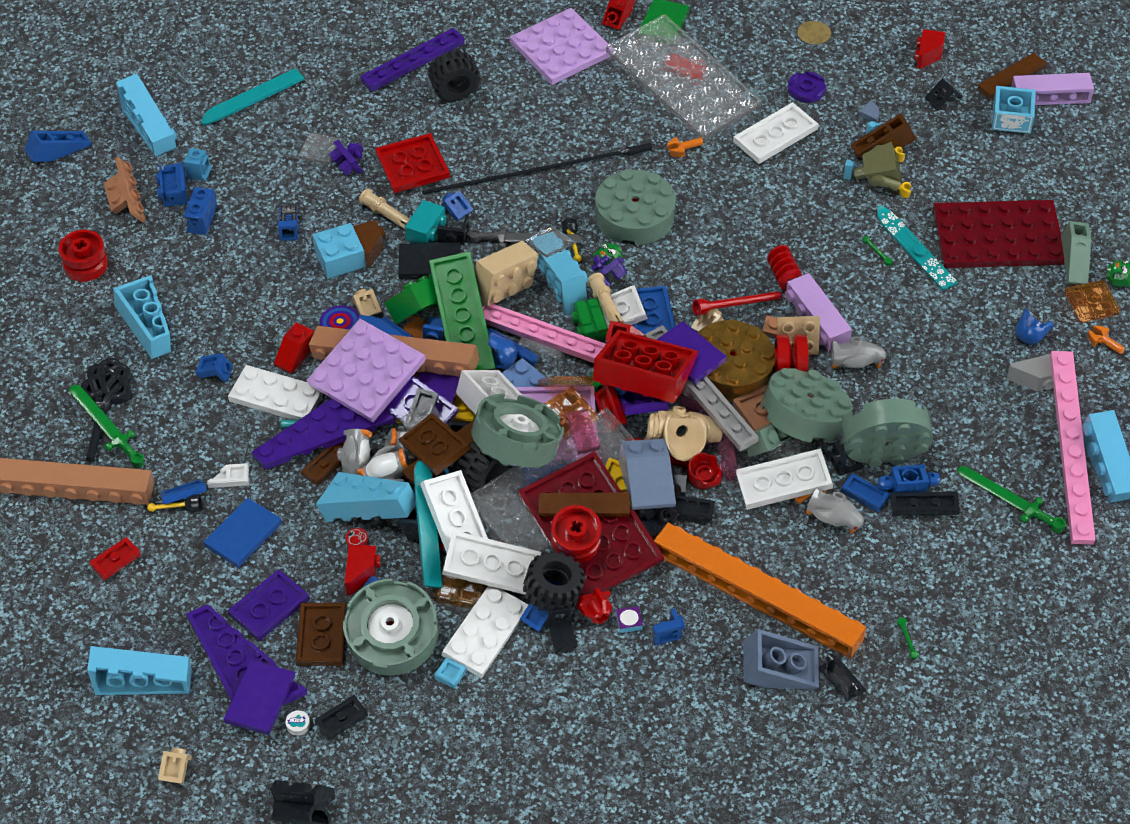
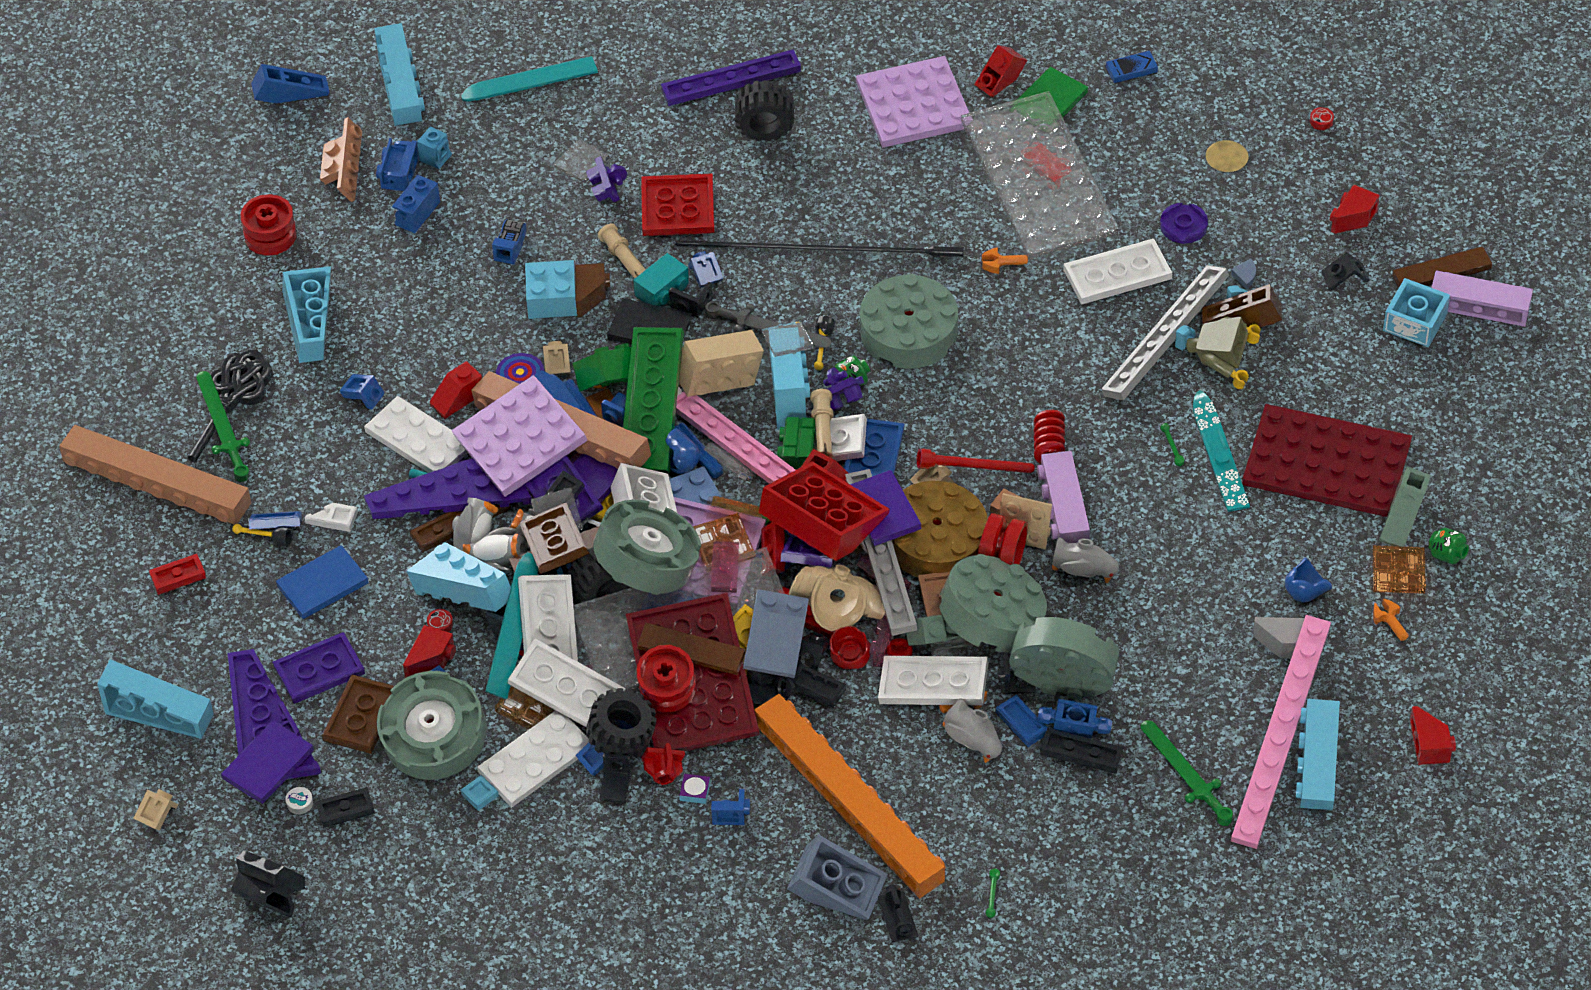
camera: 20 degrees right, 0 degrees up
(743, 460) = (899, 647): none -> red tile
(833, 169) = (1164, 332): none -> light grey plate

